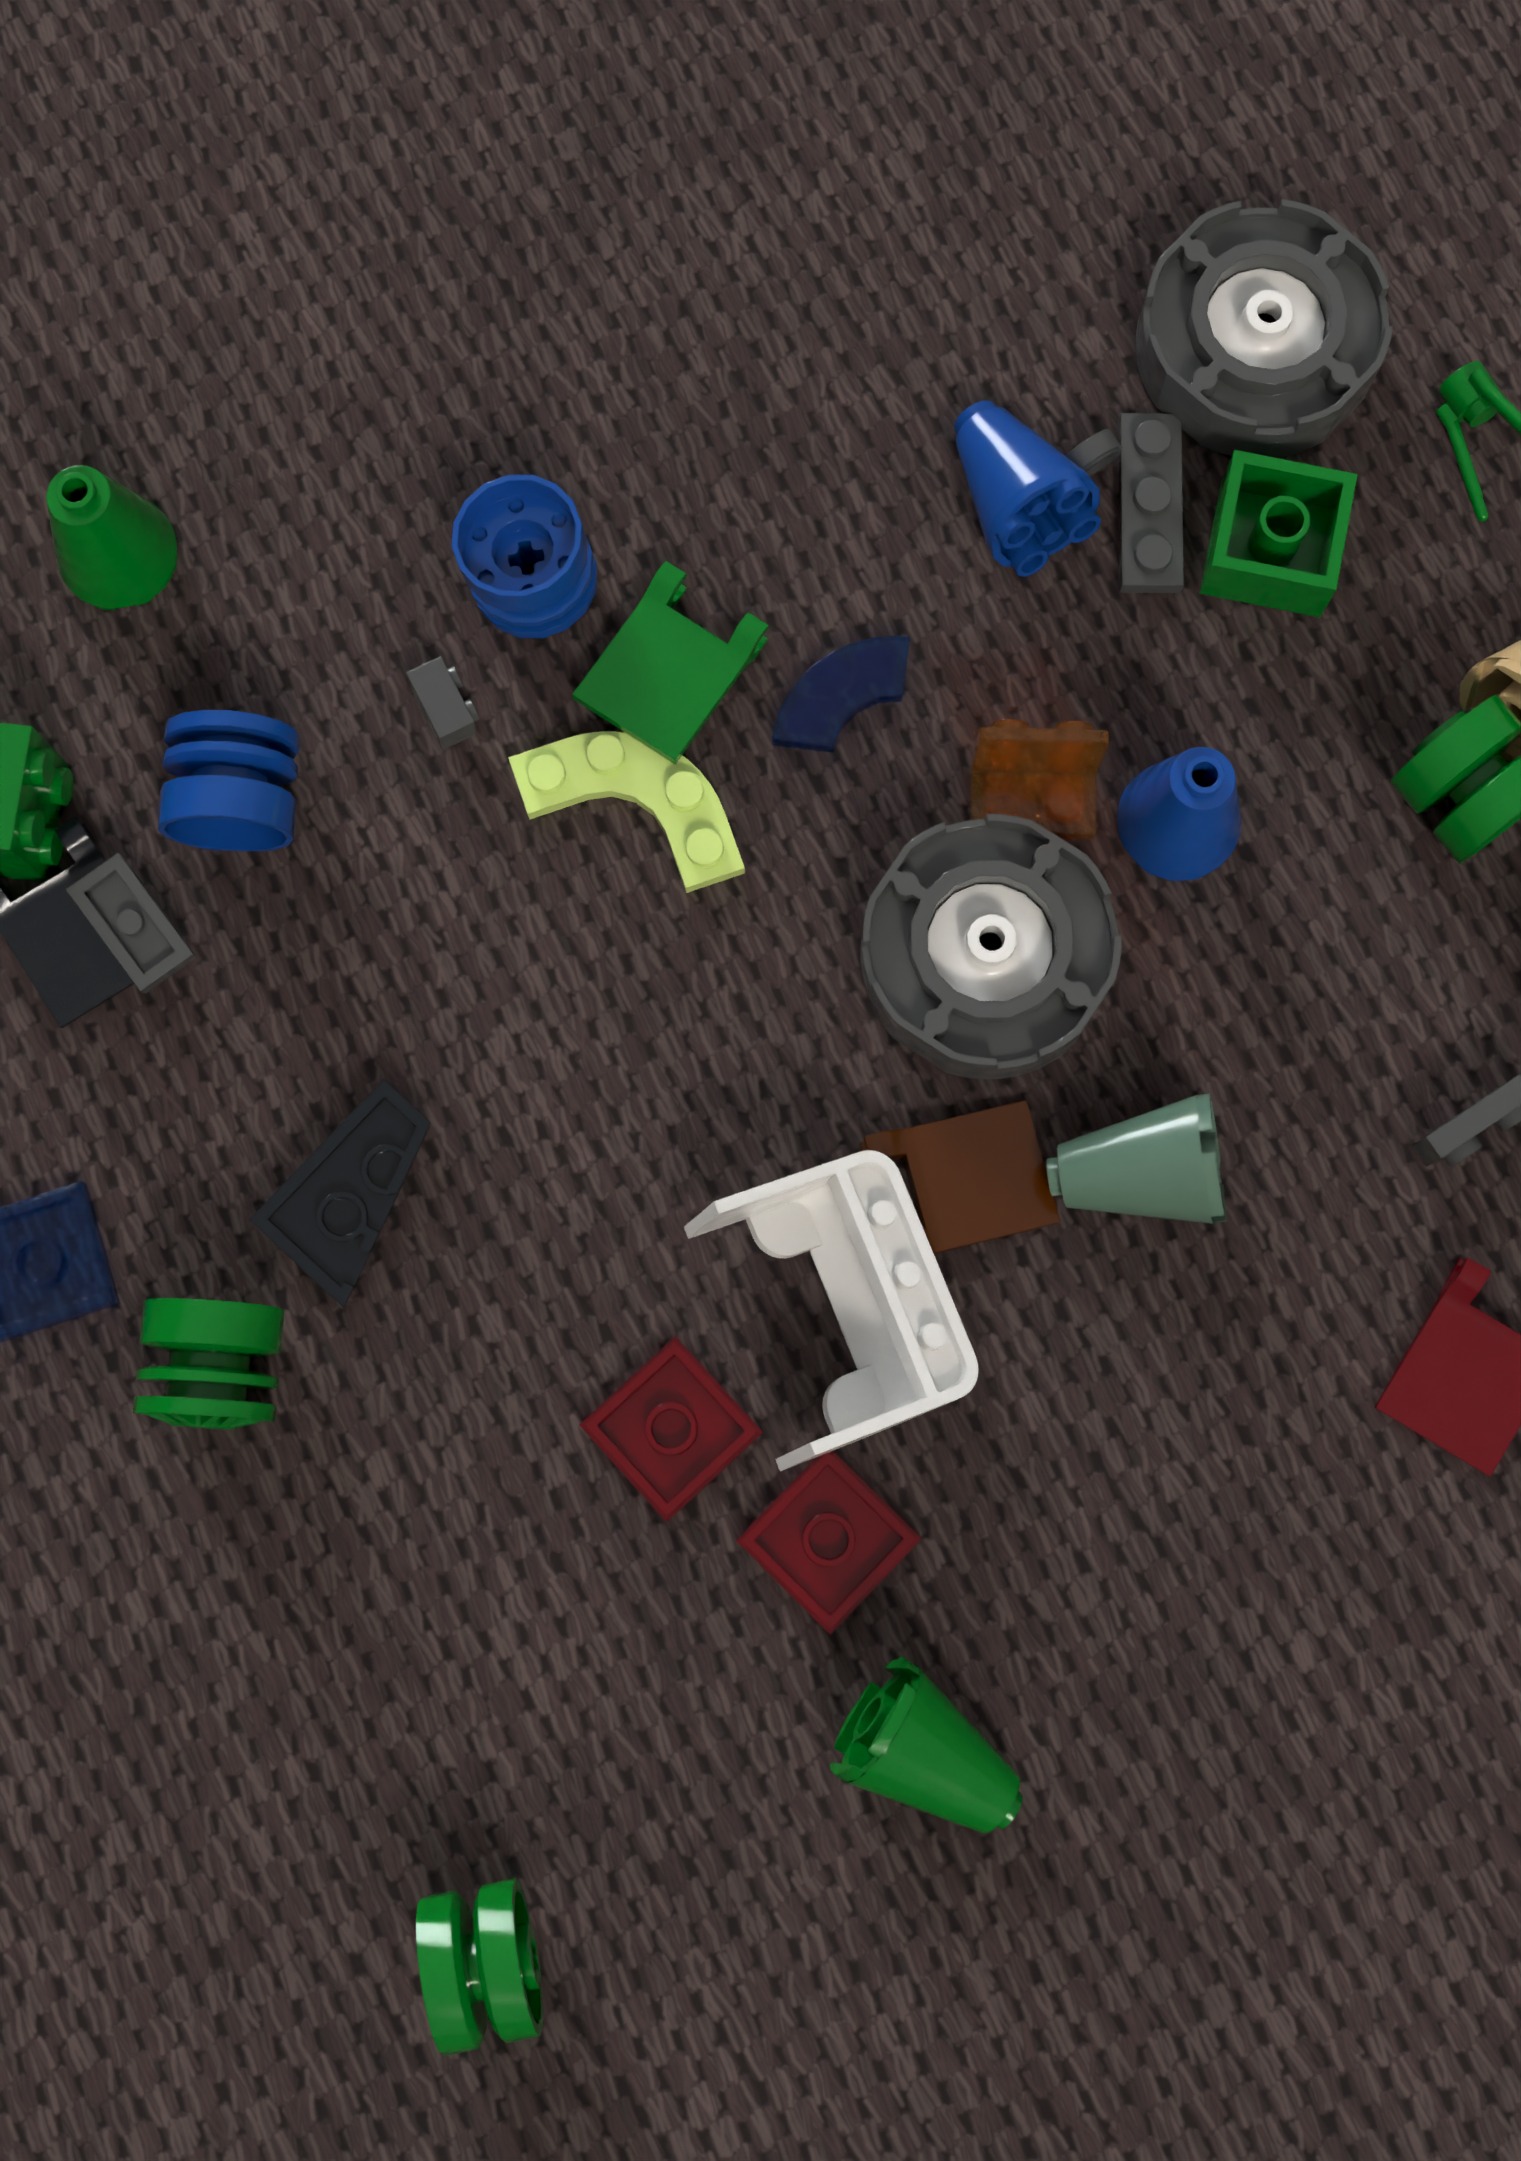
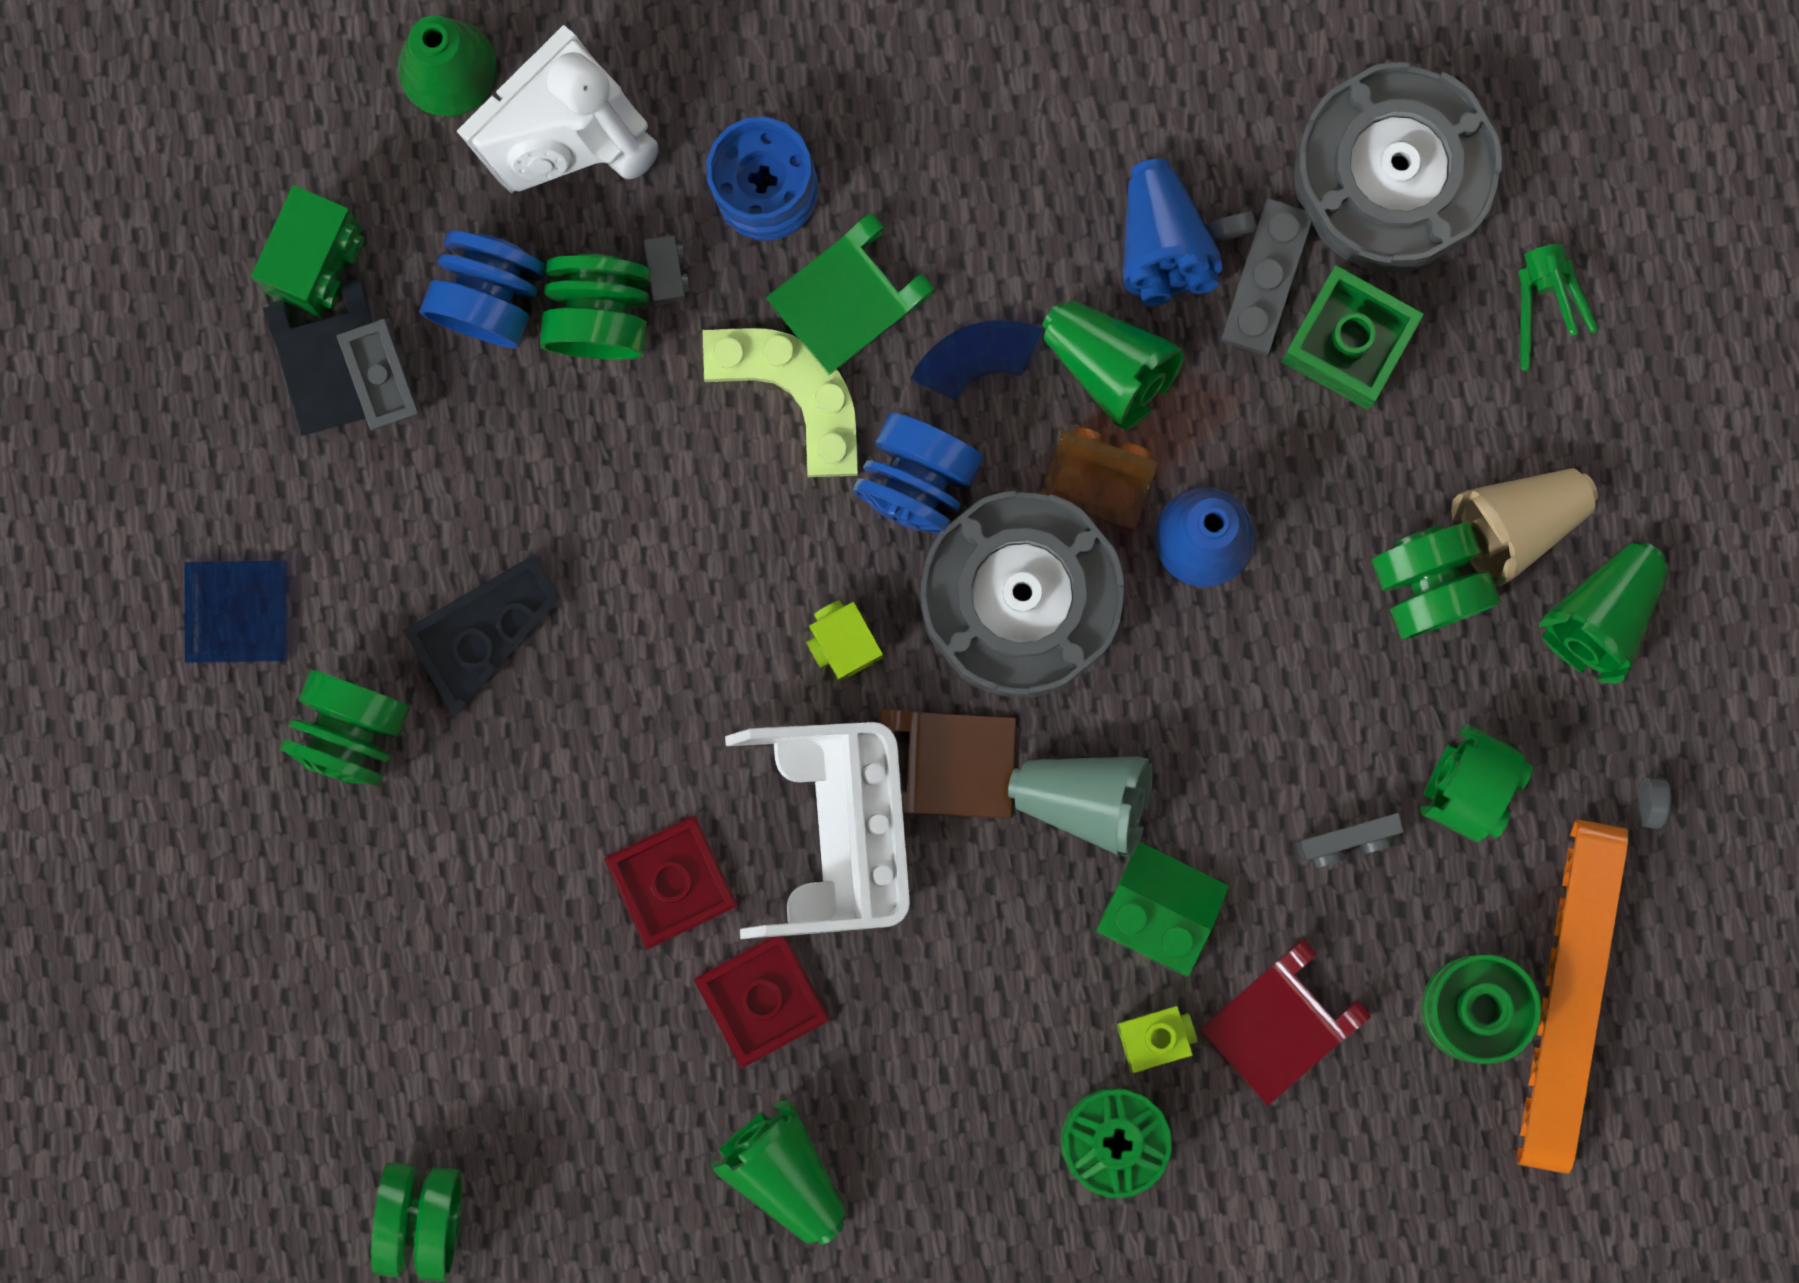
camera: 15 degrees right, 5 degrees up
(260, 557) = (558, 119): none -> white piece
(370, 762) = (595, 297): none -> green wheel
(790, 1069) = (842, 640): none -> lime brick
(819, 839) = (918, 474): none -> blue wheel
(1005, 642) = (1112, 360): none -> green cone
(1284, 1277) = (1162, 909): none -> green slope
(1308, 1546) = (1098, 1117): none -> green wheel
(1330, 1435) = (1156, 1038): none -> lime brick

